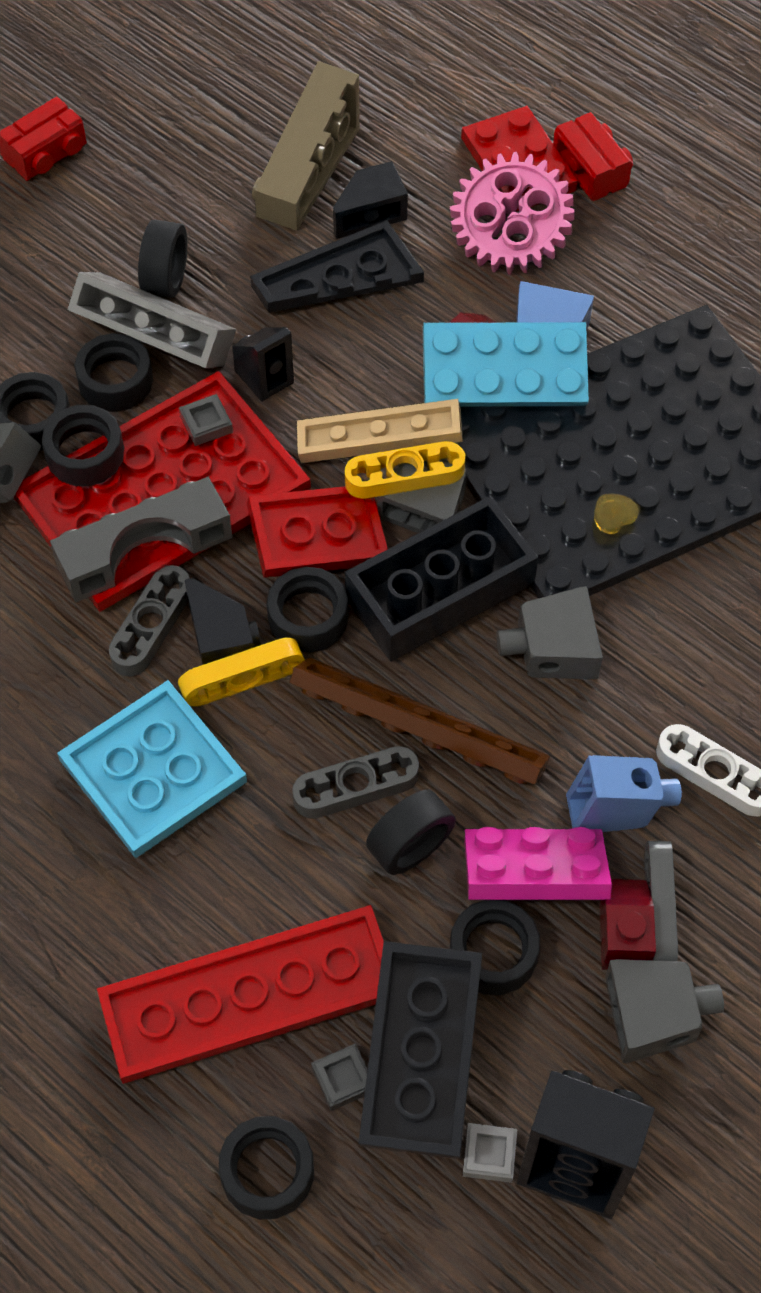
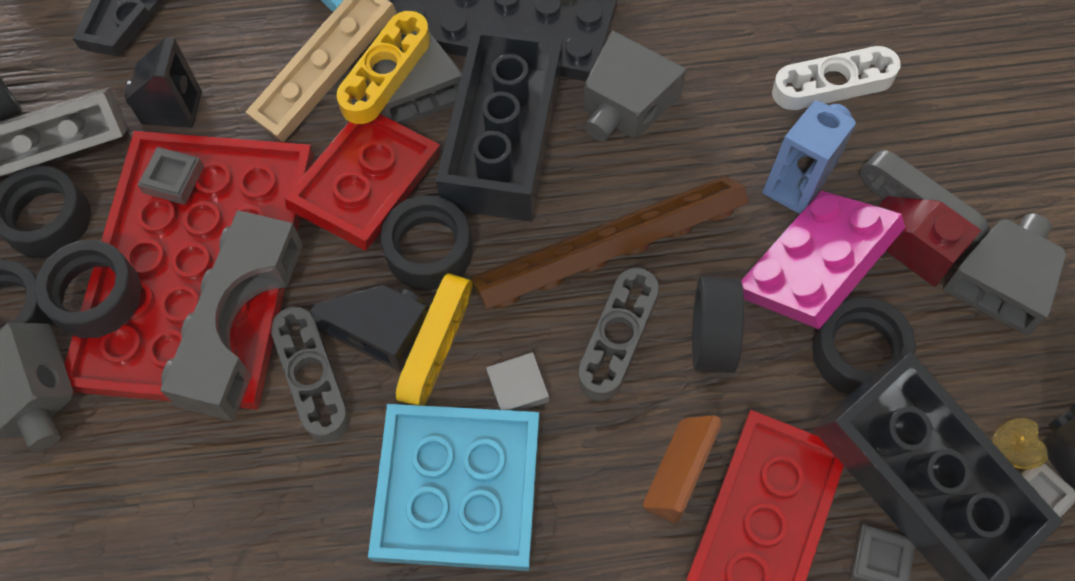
camera: 45 degrees left, 5 degrees up
(259, 749) = (518, 383): none -> light grey tile
(293, 899) = (681, 467): none -> dark orange slope
(515, 1109) = (1020, 443): none -> clear yellow piece

